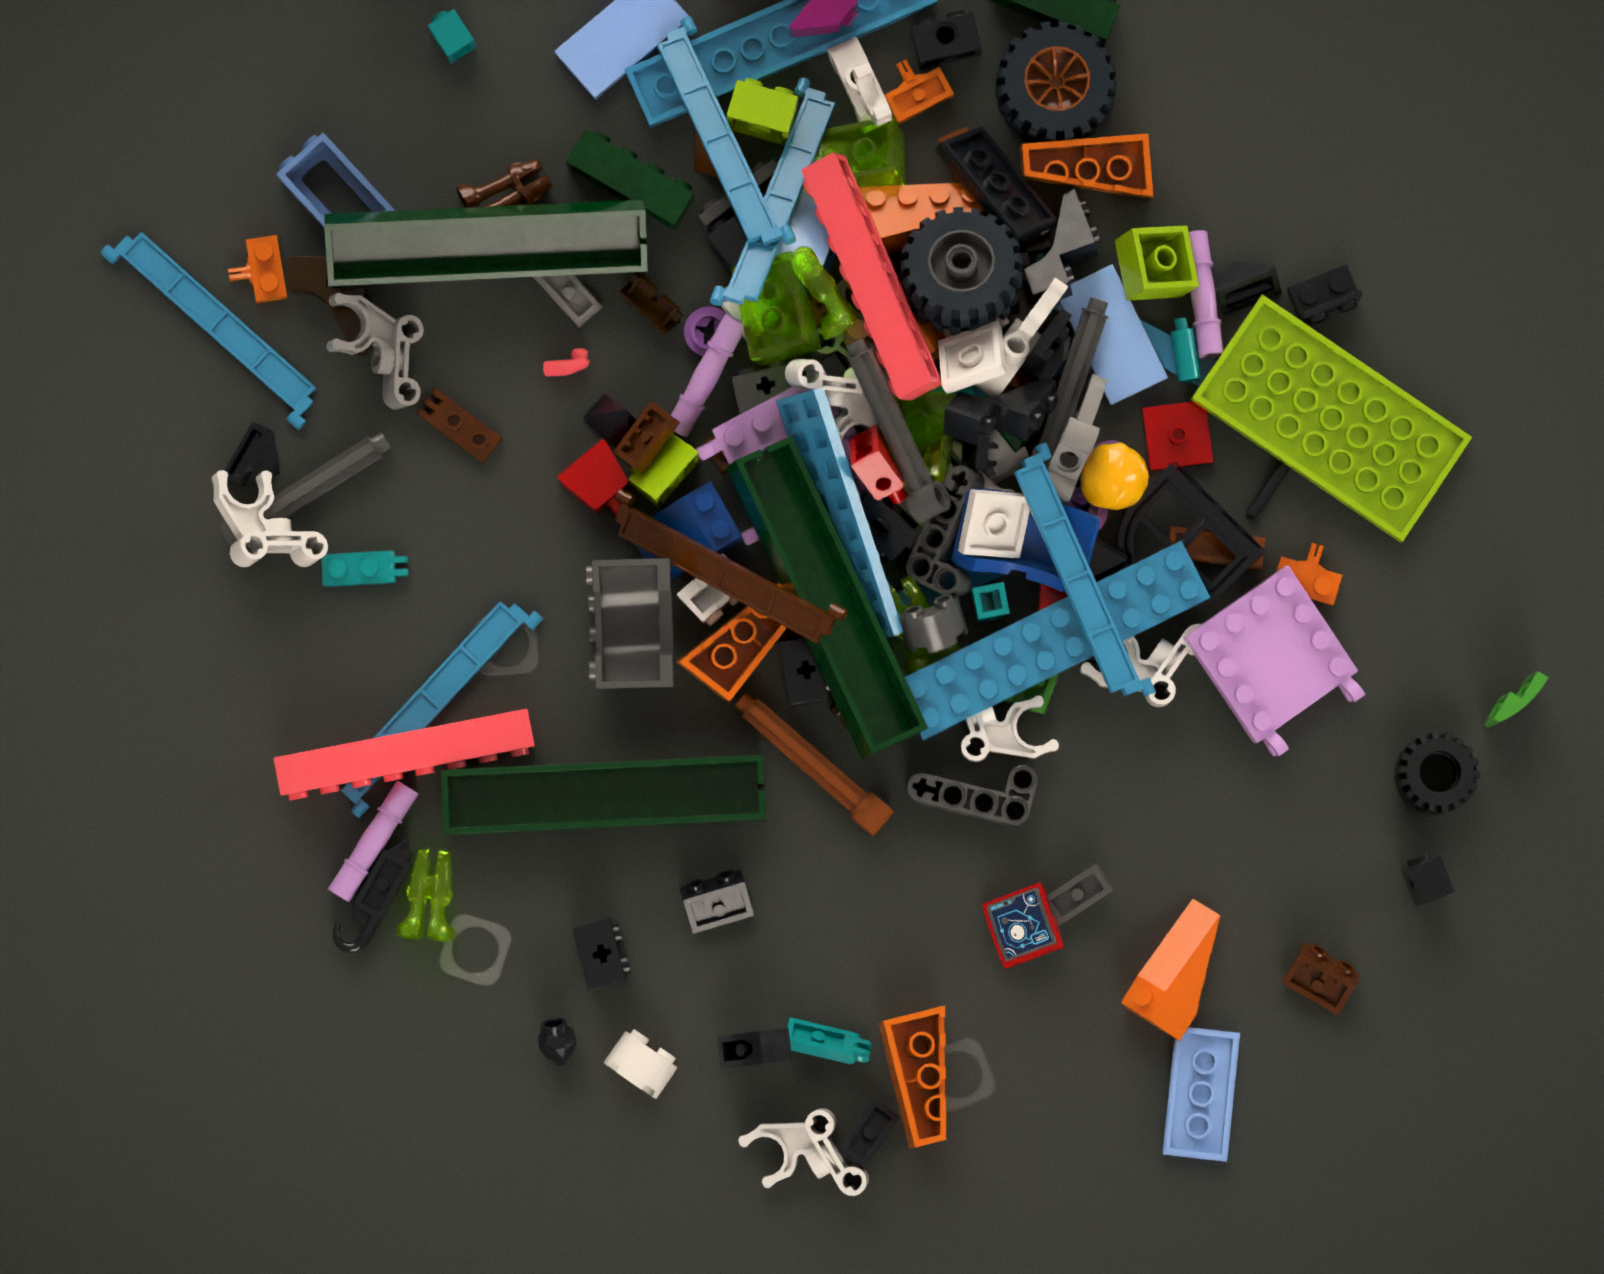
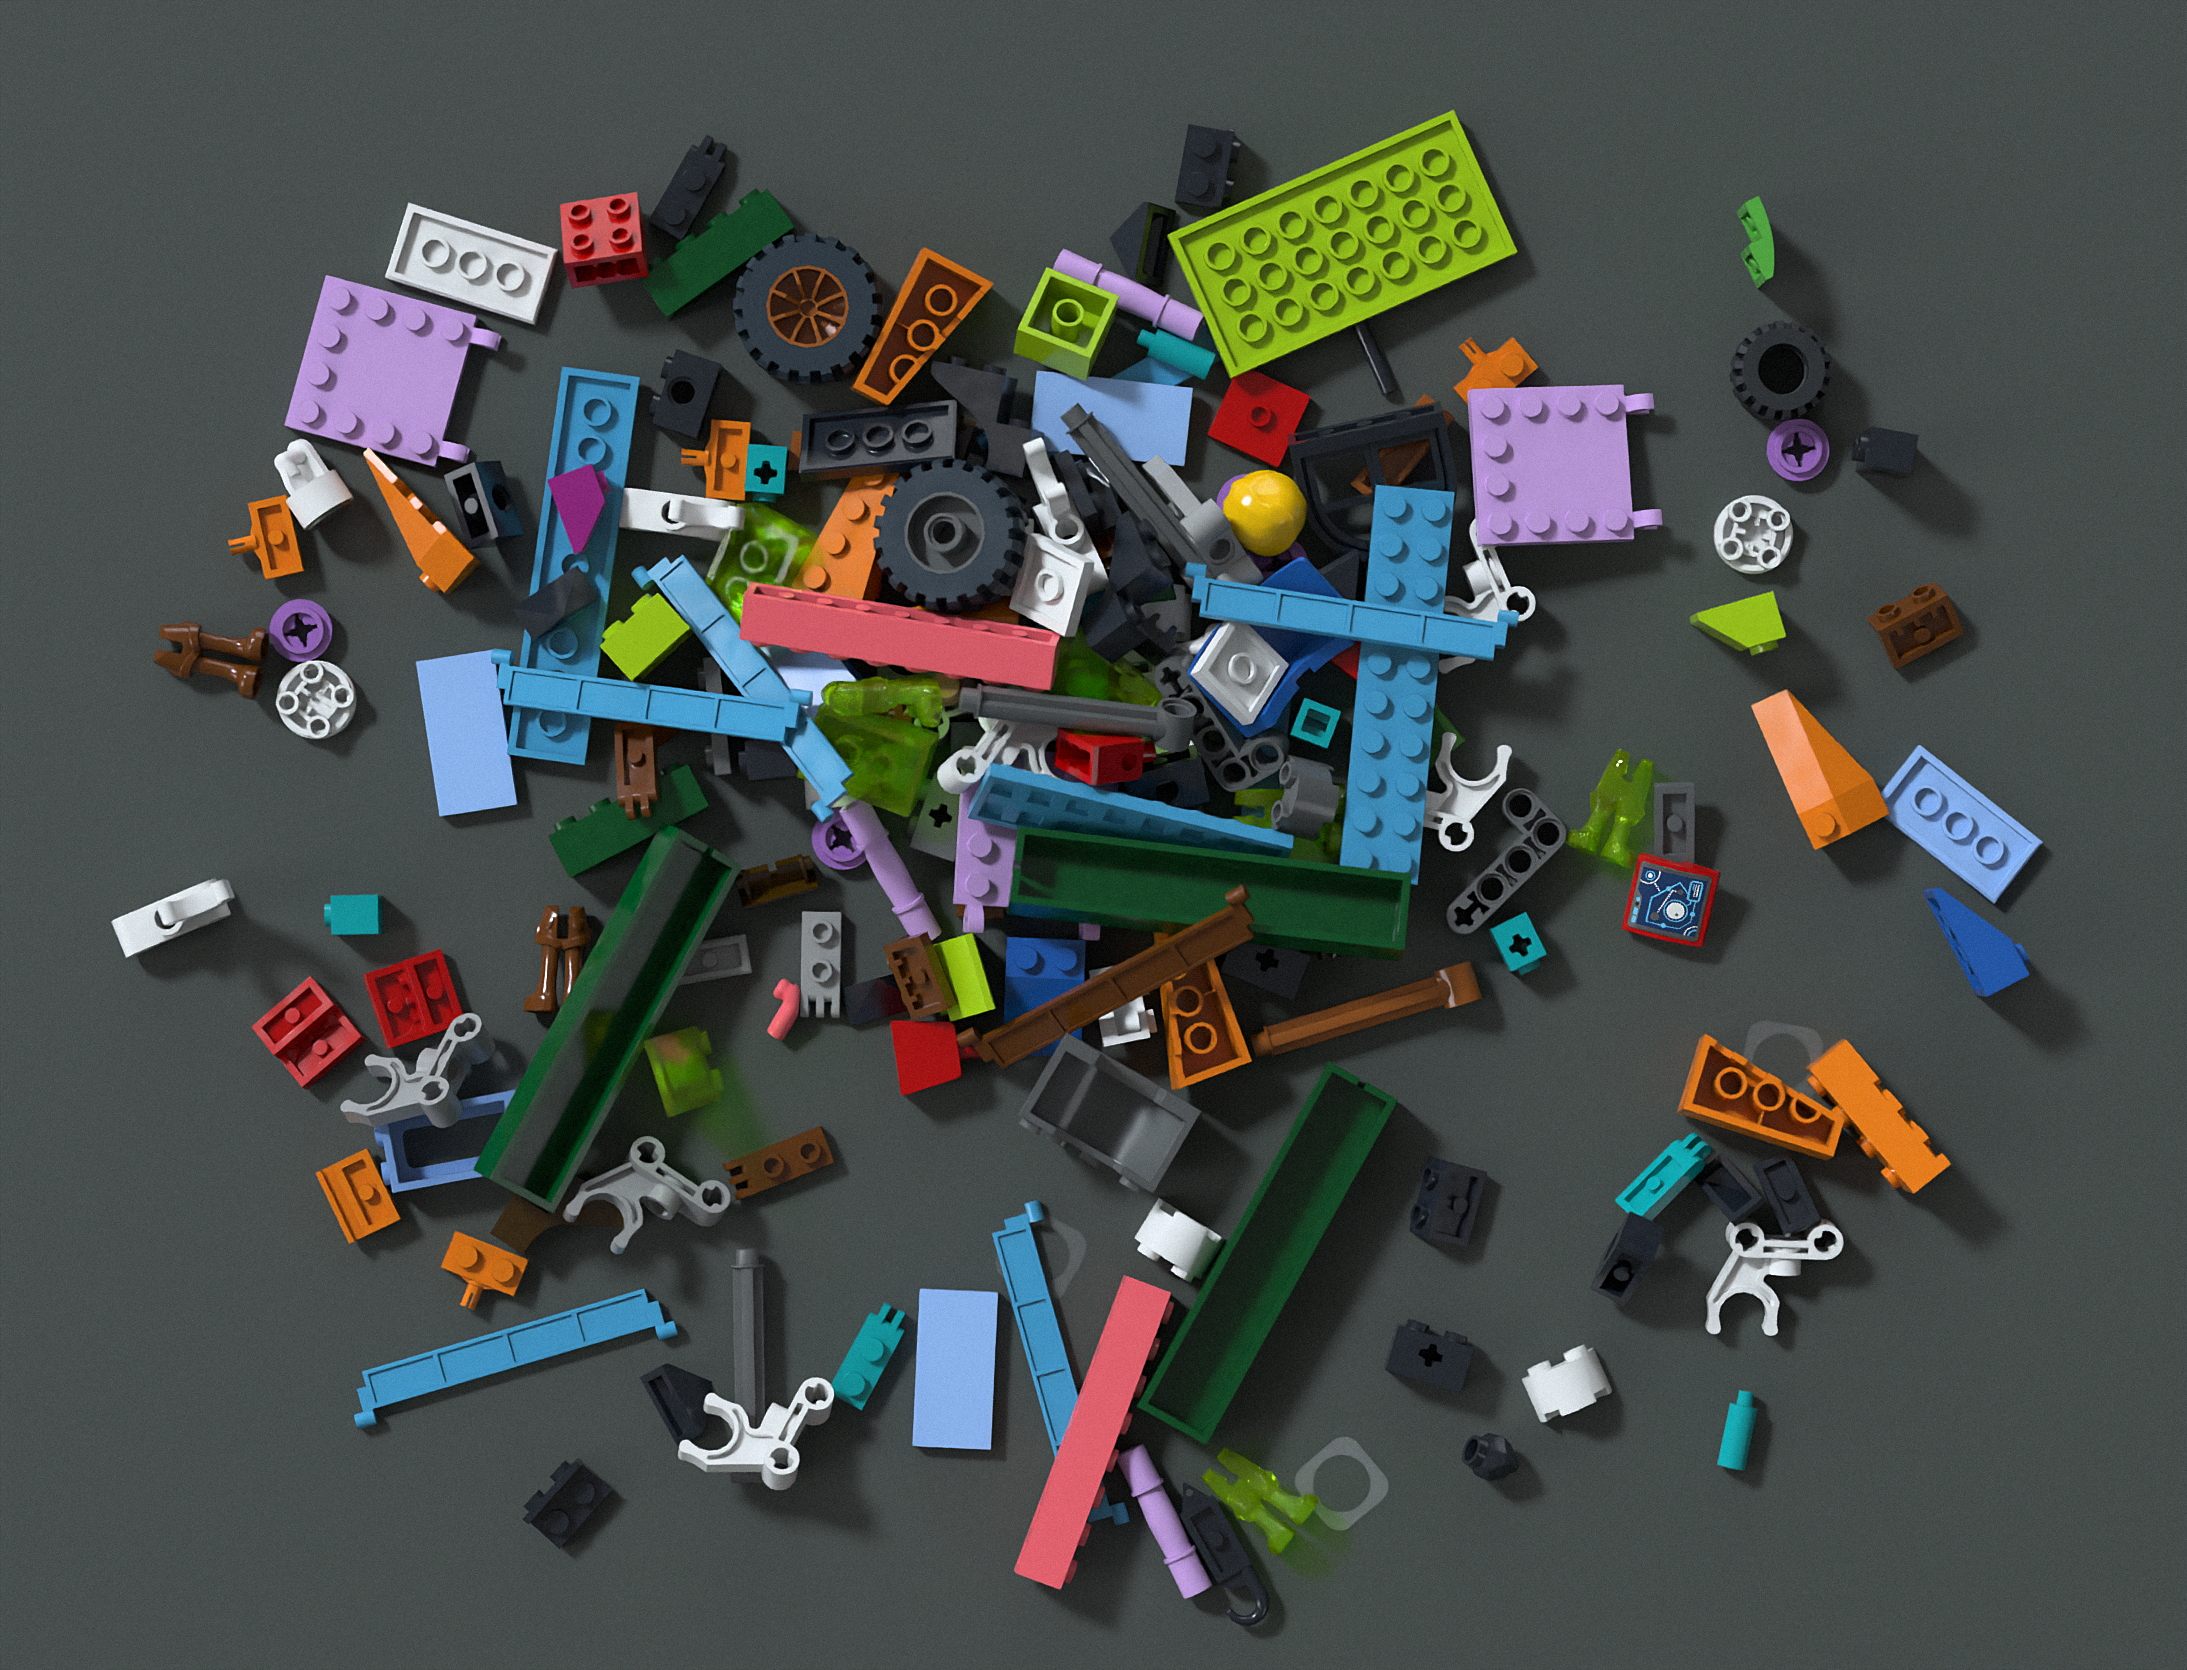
camera: 55 degrees left, 5 degrees up
(135, 423) = (567, 1502): none -> black bracket
(260, 155) = (358, 1195): none -> orange plate
(351, 54) = (308, 1033): none -> red slope
(371, 155) = (434, 1083): none -> light grey piece
(390, 633) = (955, 1368): none -> light blue tile
(418, 110) = (413, 998): none -> red slope
(481, 317) = (684, 1070): none -> clear neon green slope
(574, 732) = (1178, 1240): none -> white cylinder
(614, 369) = (821, 962): none -> light grey hinge
(669, 159) = (636, 768): none -> reddish brown hinge
(681, 1204) = (1738, 1432): none -> teal cylinder
(748, 38) = (555, 603): none -> black slope
(846, 1090) = (1728, 1189): none -> black slope
(926, 824) = (1502, 936): none -> teal brick
(930, 114) = (757, 458): none -> teal brick
(961, 1162) = (1875, 1117): none -> orange wedge
(1071, 845) = (1615, 796): none -> clear neon green piece
(1125, 1162) = (1982, 951): none -> blue slope
(1246, 854) = (1744, 623): none -> lime slope
(1312, 826) = (1753, 534): none -> white tile
(1405, 822) = (1808, 435): none -> medium lavender gear

